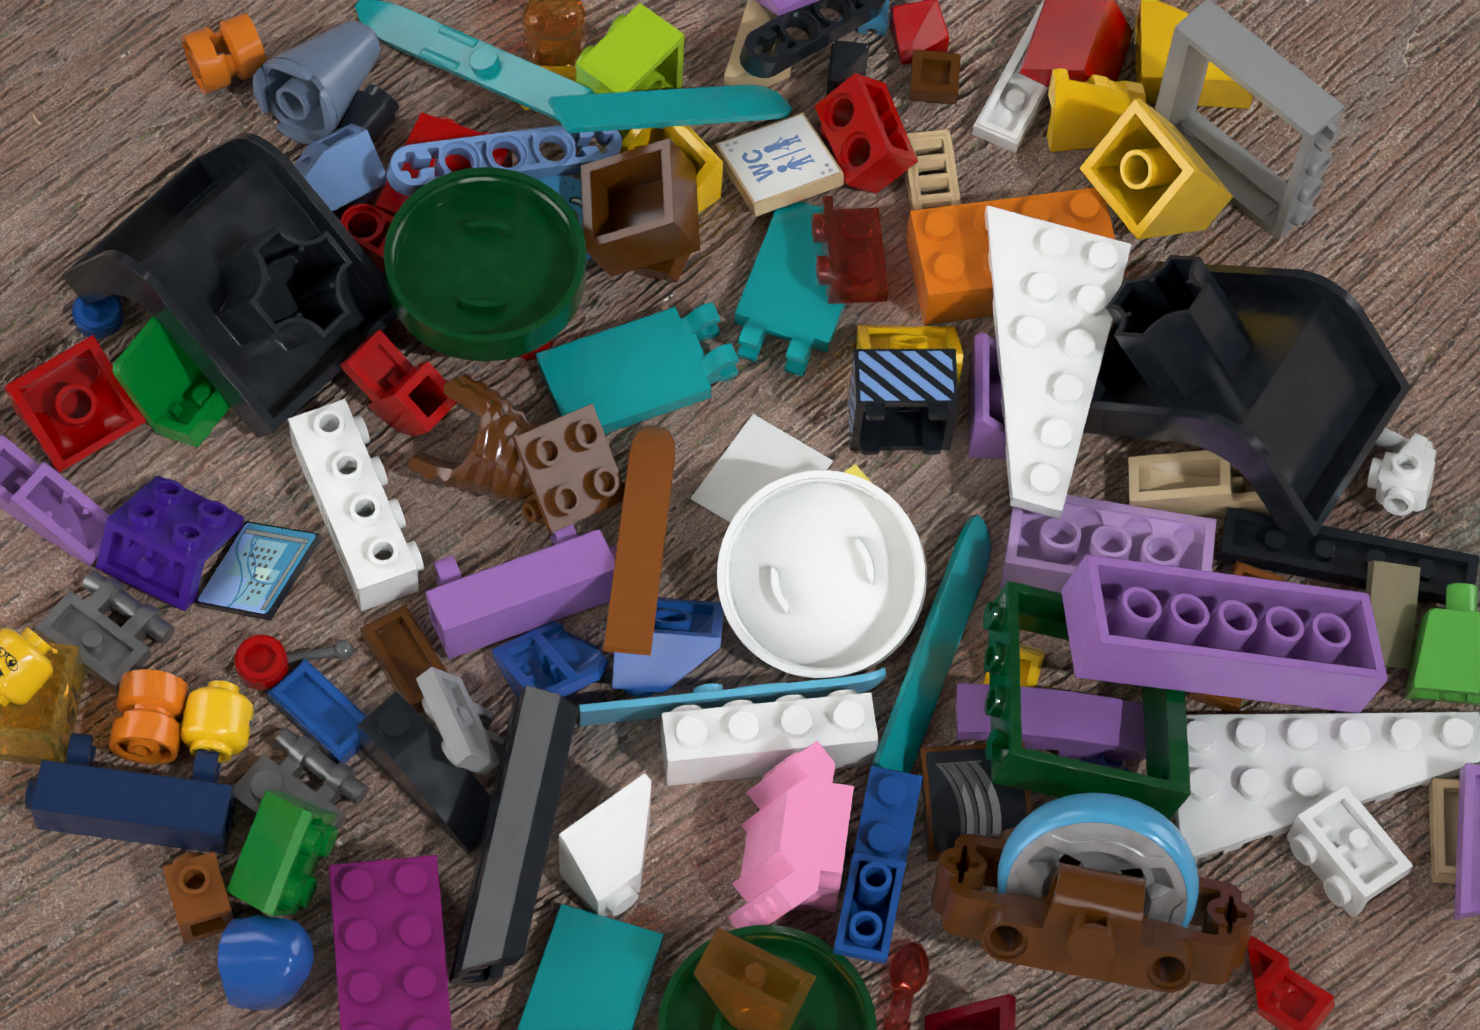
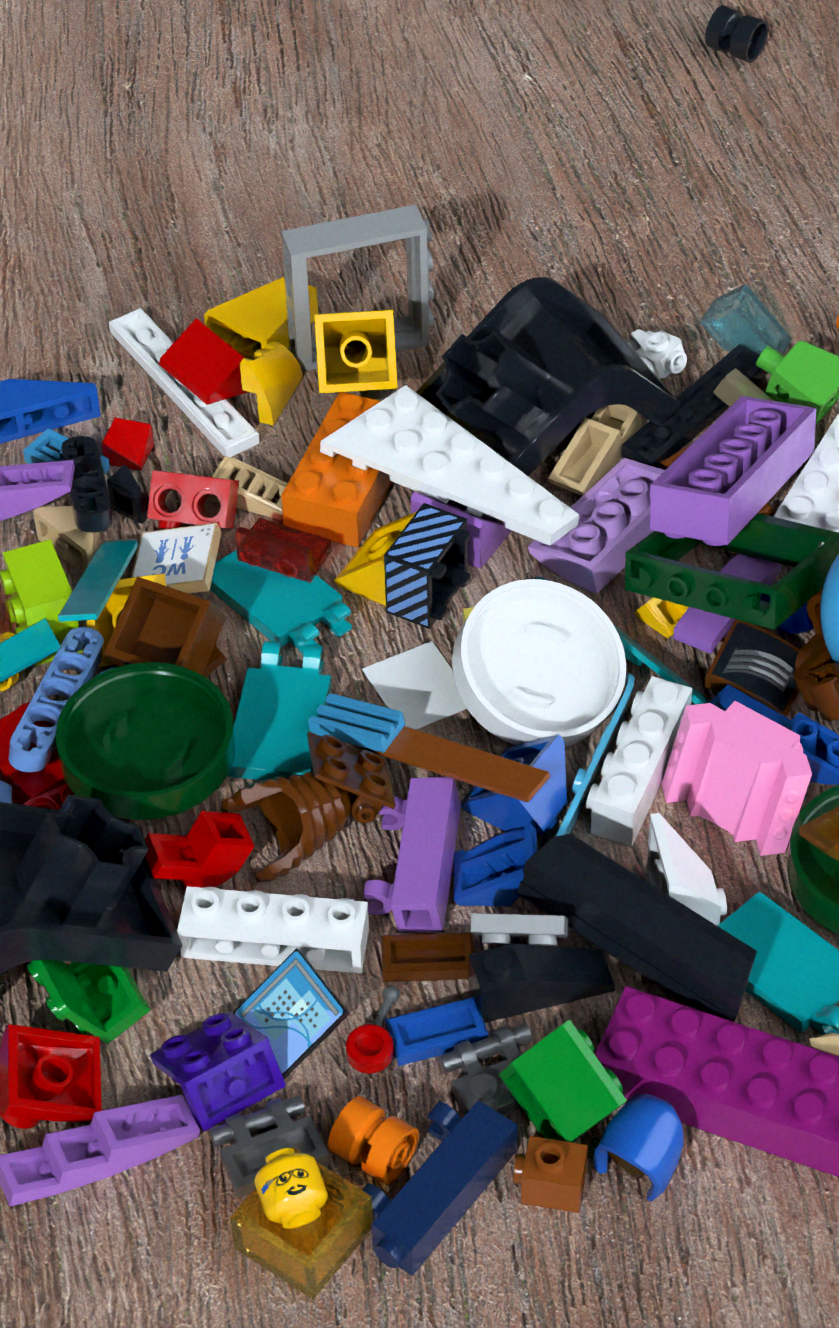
camera: 55 degrees left, 15 degrees down
(217, 720) = (407, 1092): yellow head -> none
(649, 412) = (360, 717): none -> dark azure tile
(934, 77) = (171, 451): reddish brown plate -> none

